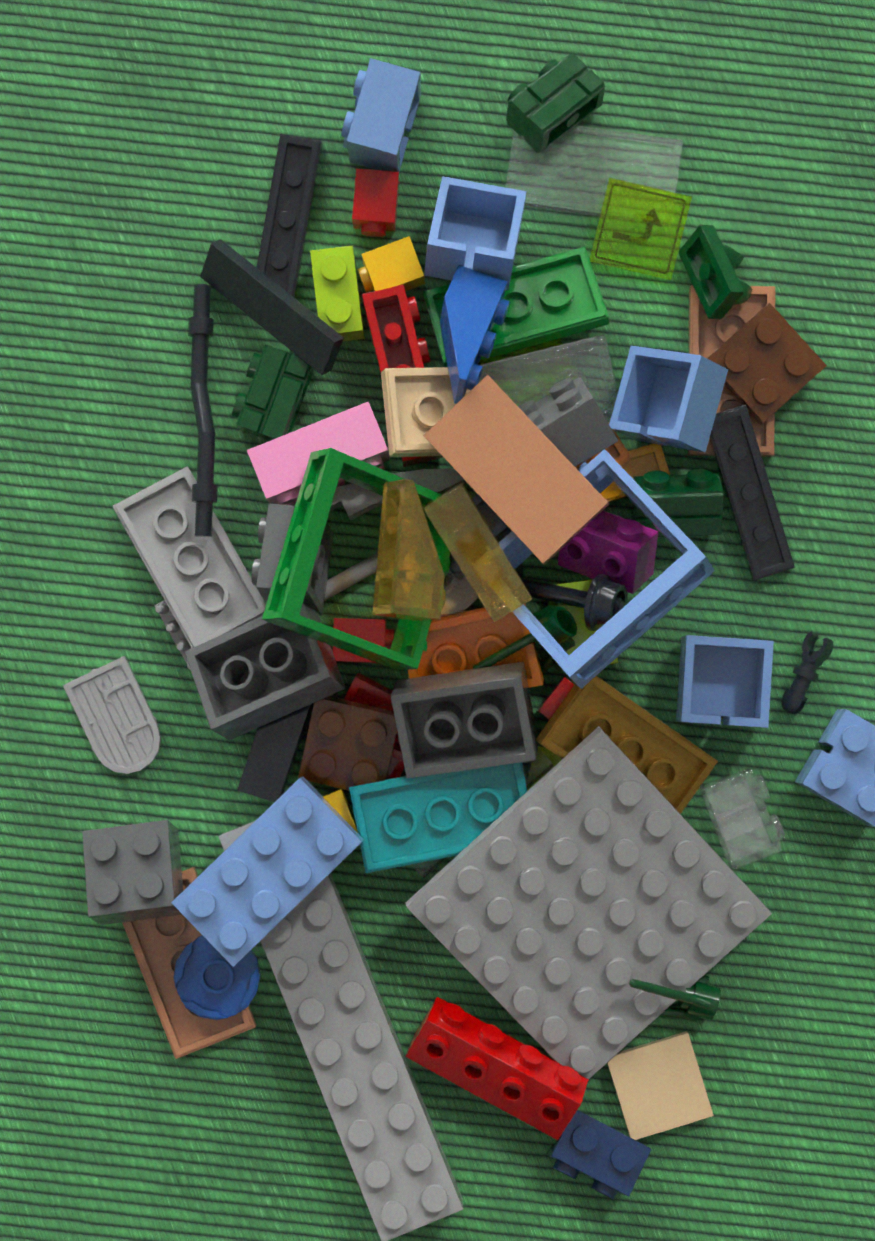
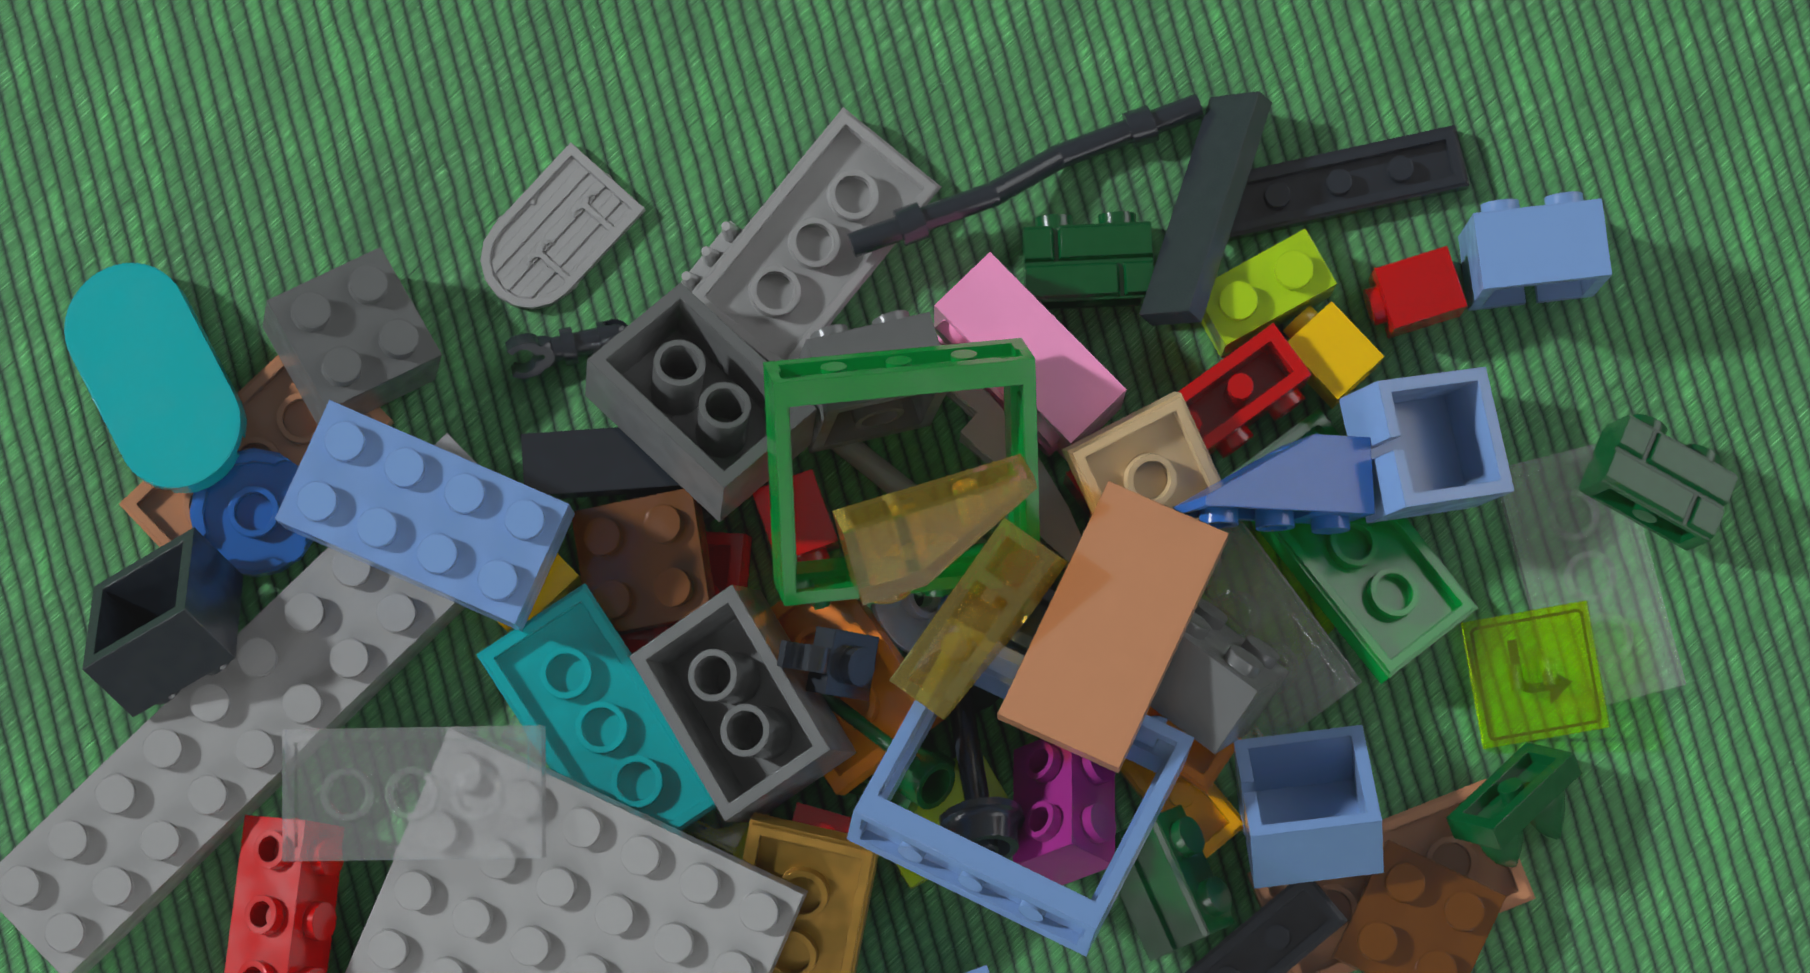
camera: 70 degrees right, 5 degrees down
(105, 1005) = (155, 378): none -> teal tile
(191, 740) = (566, 346): none -> black piece
(266, 1061) = (163, 623): none -> black piece
(439, 947) = (414, 793): none -> clear tile
(465, 650) = (837, 662): none -> black plate

